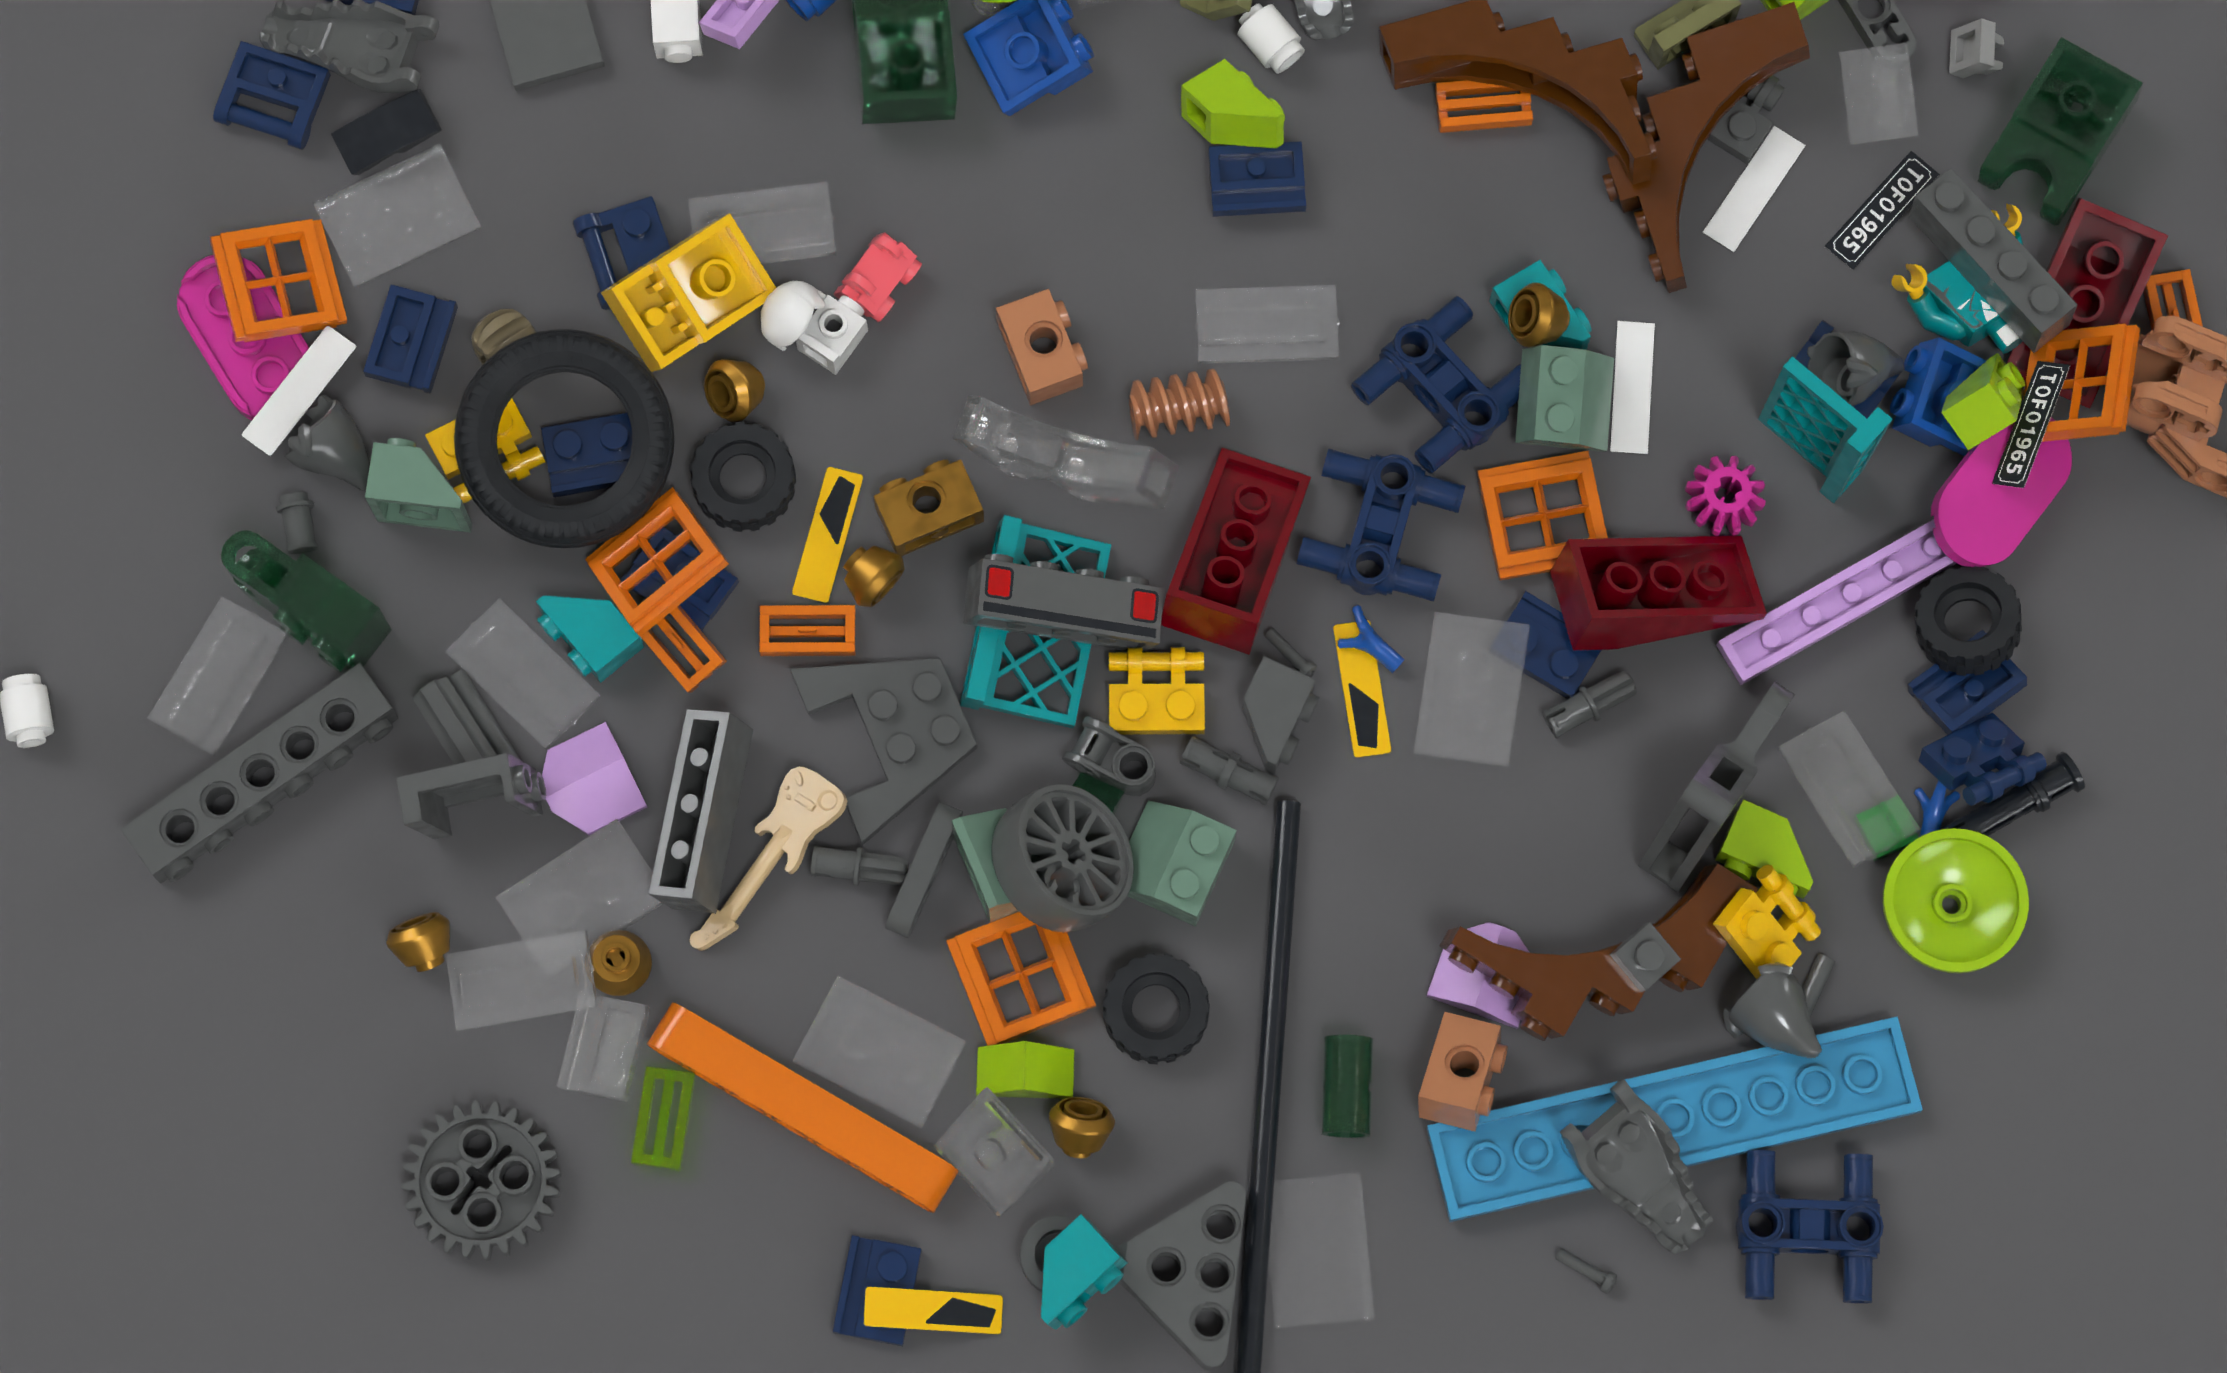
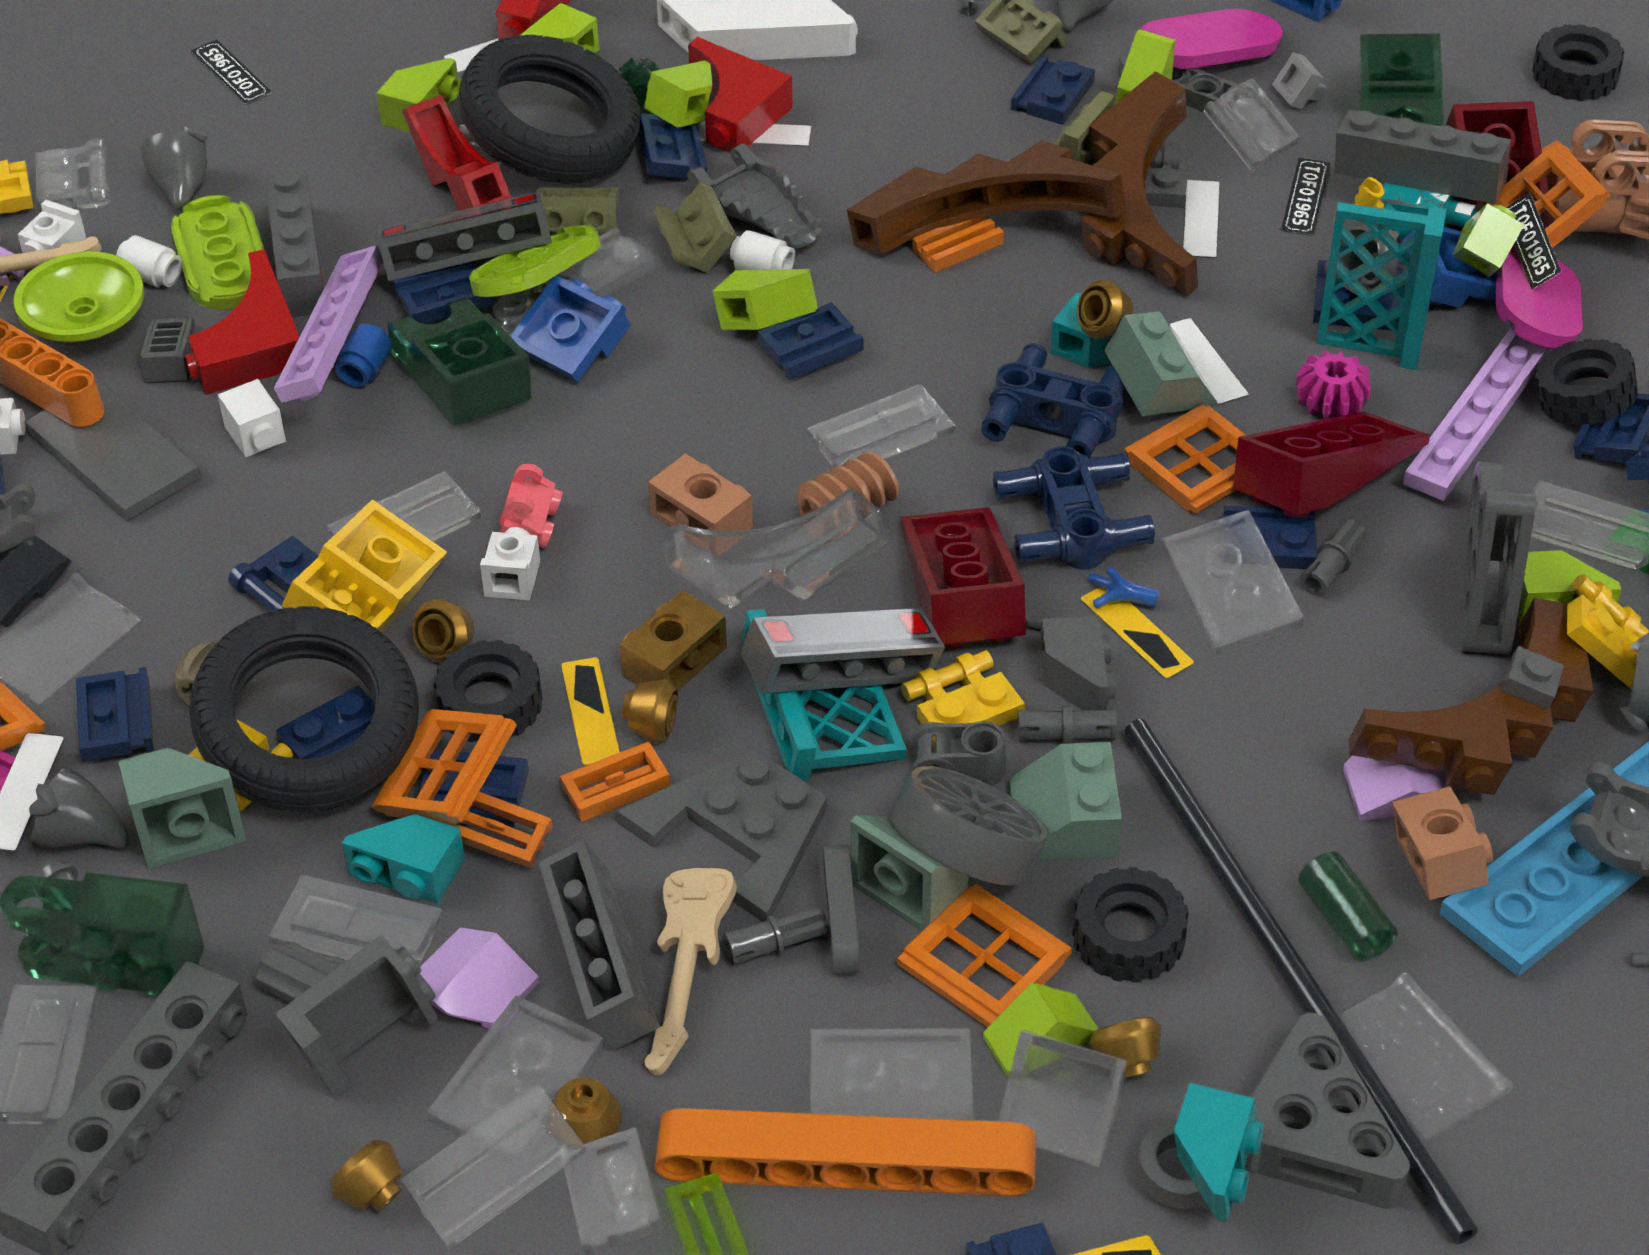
camera: 25 degrees left, 30 degrees down
(789, 312) = (464, 553): white hair -> none

